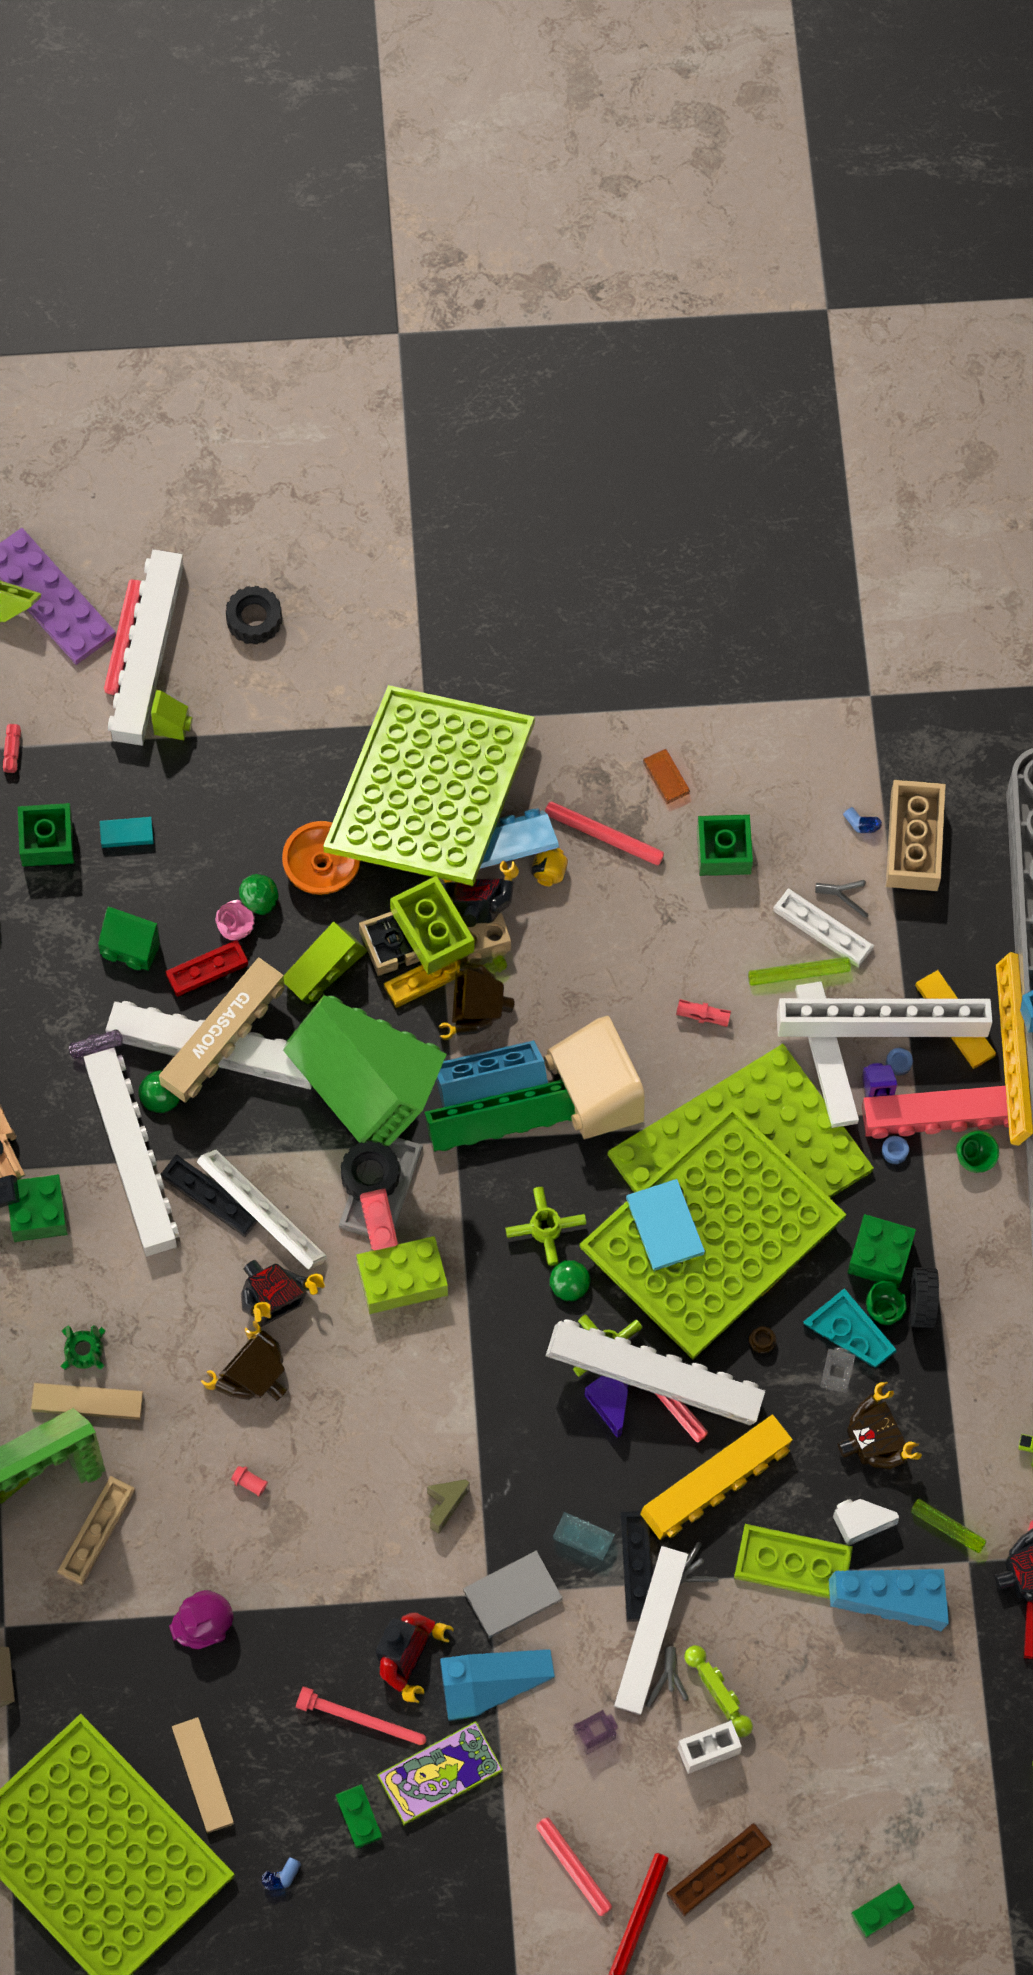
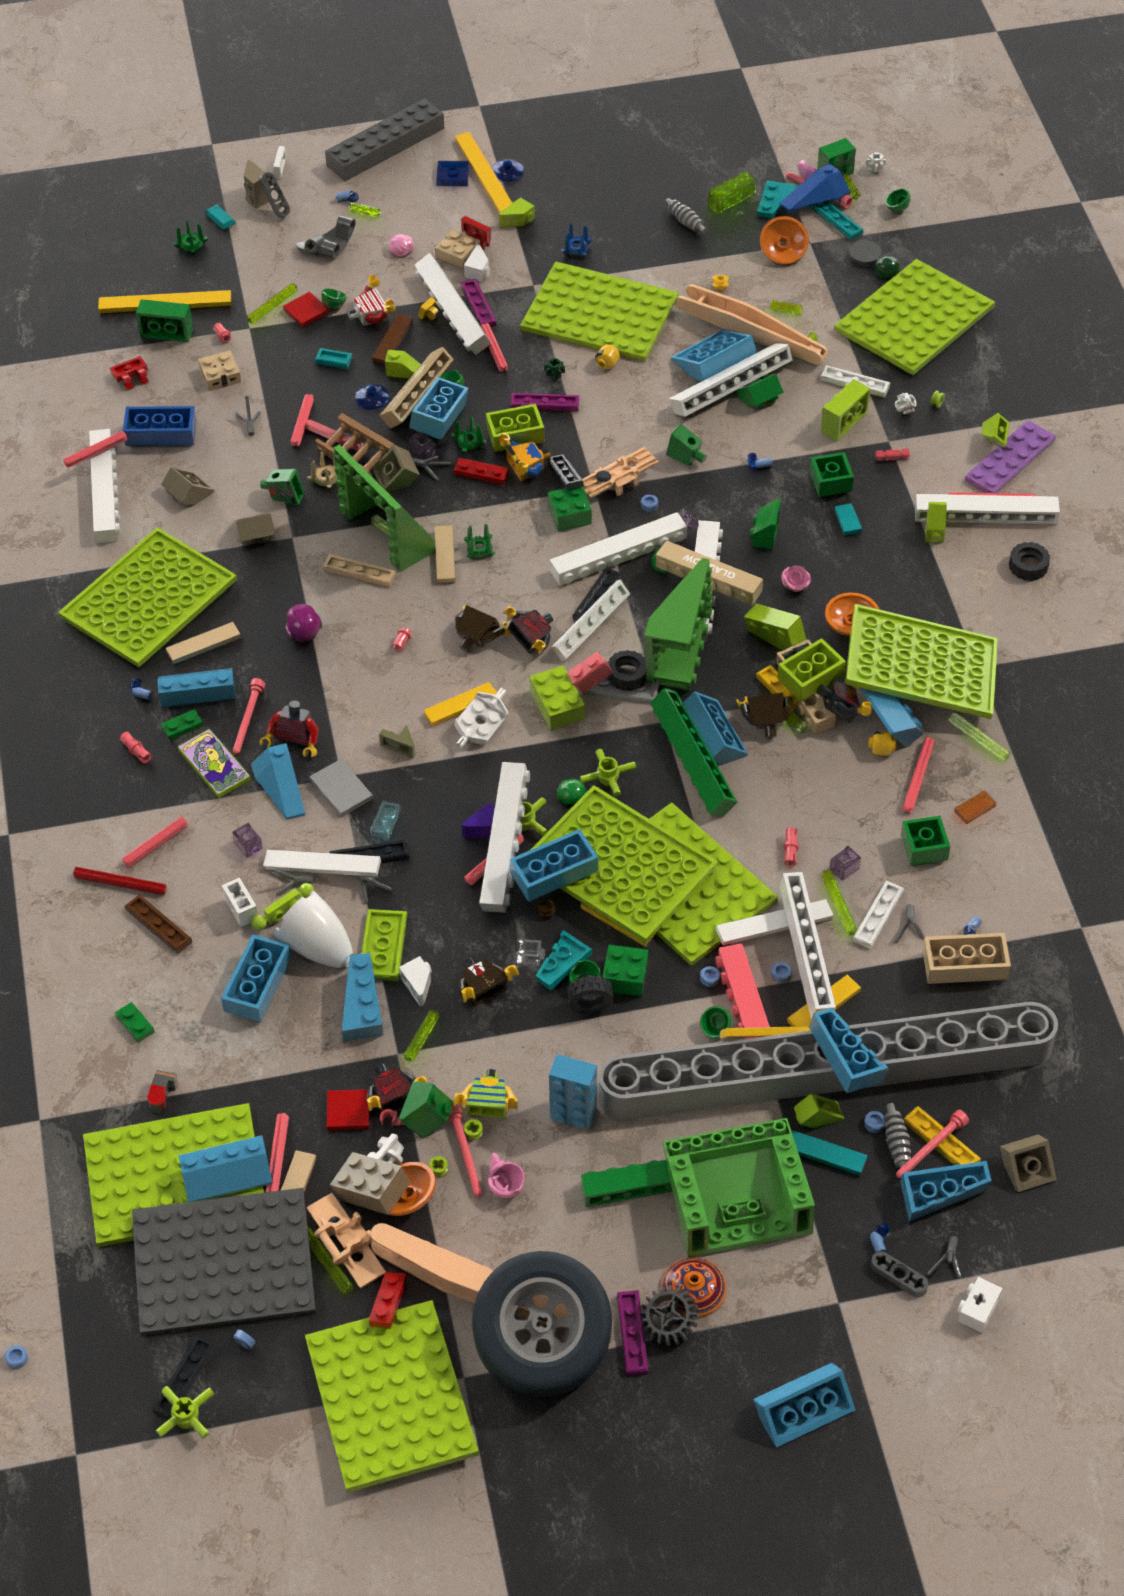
camera: 85 degrees right, 15 degrees down
(39, 1096) = (649, 503): none -> medium blue tile
(207, 968) = (754, 565): red plate -> none
(259, 893) = (818, 588): green piece -> none
(287, 1788) = (196, 687): none -> dark azure slope
(384, 1411) = (456, 705): none -> yellow tile
(394, 1887) = (135, 747): none -> coral pin
(412, 1367) = (485, 707): none -> white plate
(554, 743) = (979, 736): none -> clear neon green axle
(598, 1079) = (717, 776): tan windscreen -> none
(665, 1224) = (615, 829): medium azure tile -> none
(716, 1477) = (436, 887): yellow brick -> none
(726, 1309) = (554, 865): none -> dark azure brick
(746, 962) = (845, 870): none -> clear purple window
(787, 1640) = (315, 932): none -> white cylinder
(841, 1733) = (256, 978): none -> dark azure brick
(878, 1080) = (757, 953): dark purple slope -> none
(1003, 1879) = (160, 1089): none -> leg

